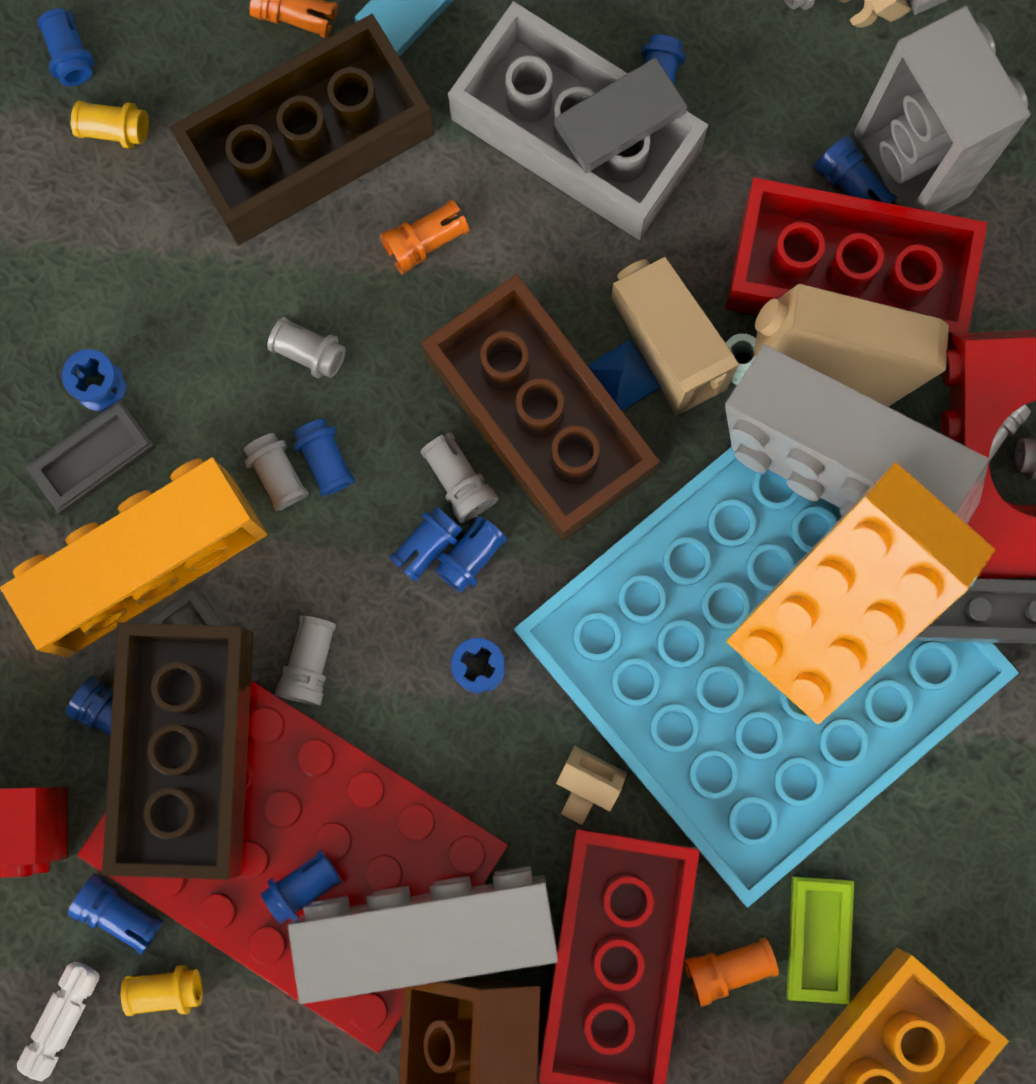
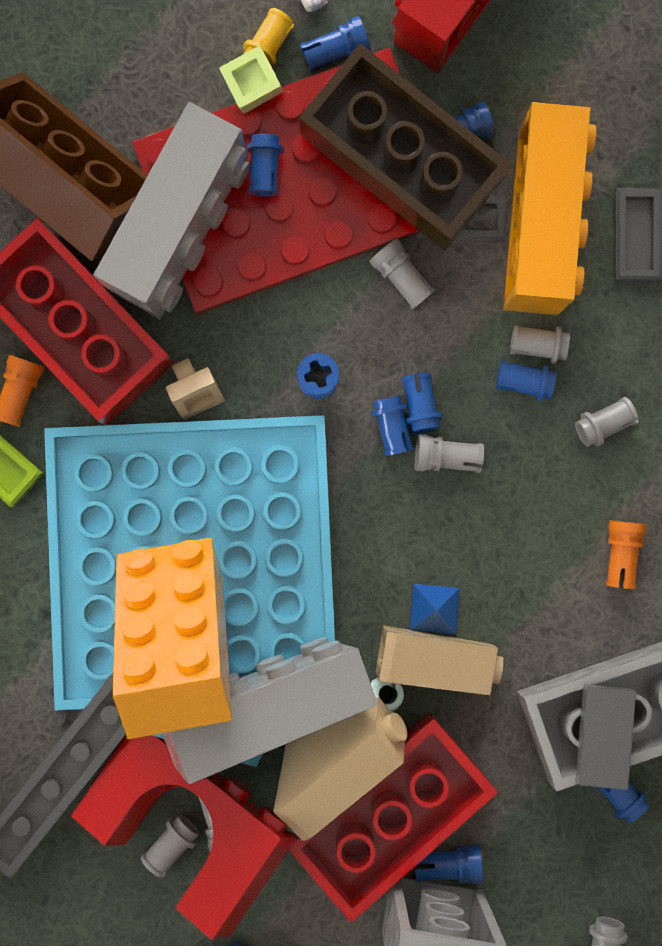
camera: 120 degrees right, 5 degrees up
(219, 972) = (251, 79): none -> yellowish green tile
(540, 407) = (453, 538): reddish brown brick -> none

